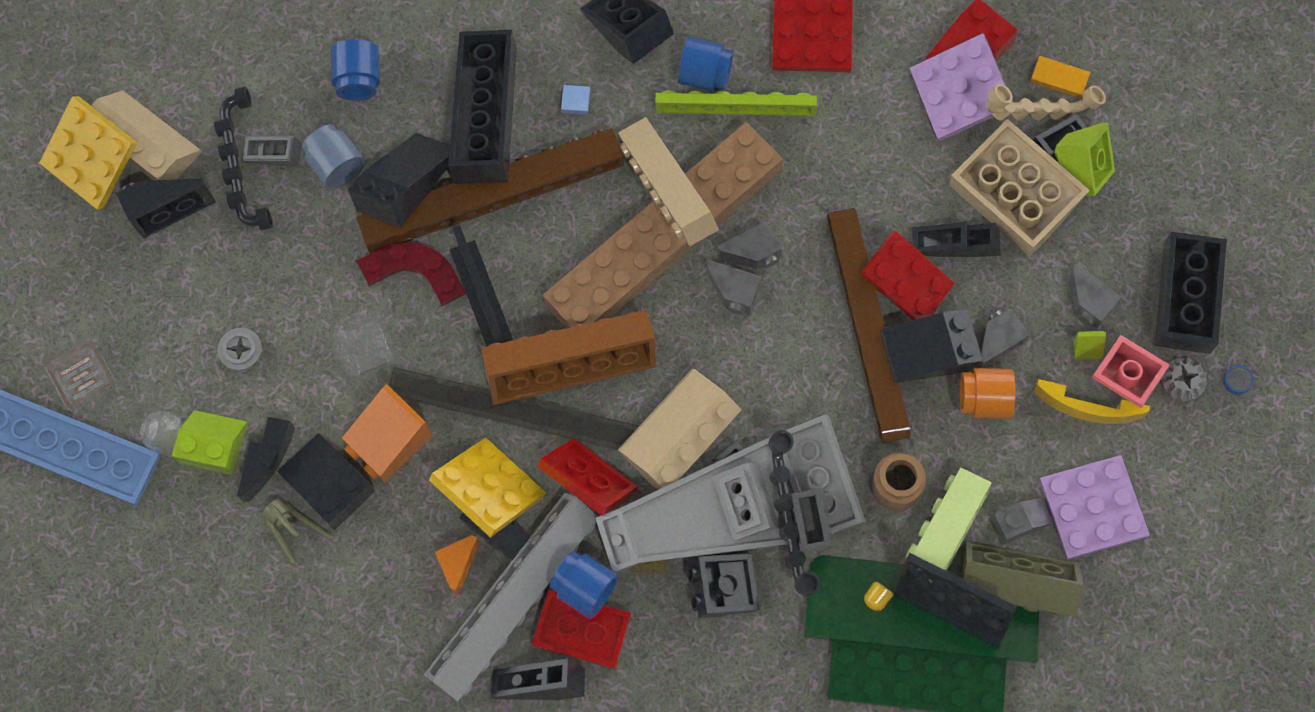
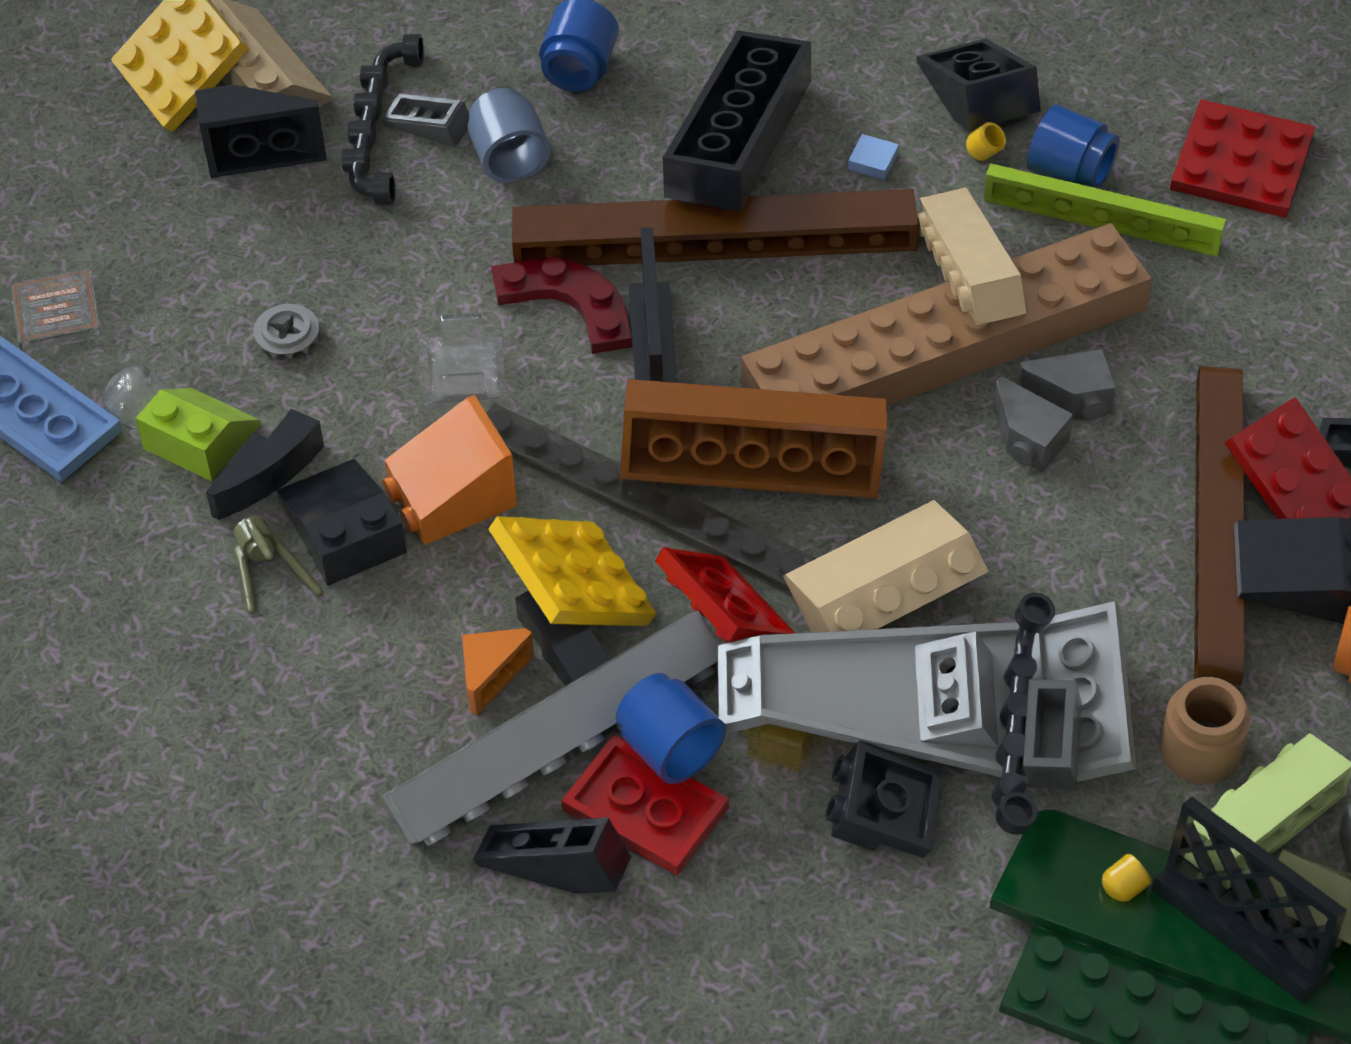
camera: 15 degrees right, 20 degrees down
(400, 180) = (583, 180): black slope -> none
(646, 69) = (986, 141): none -> yellow piece

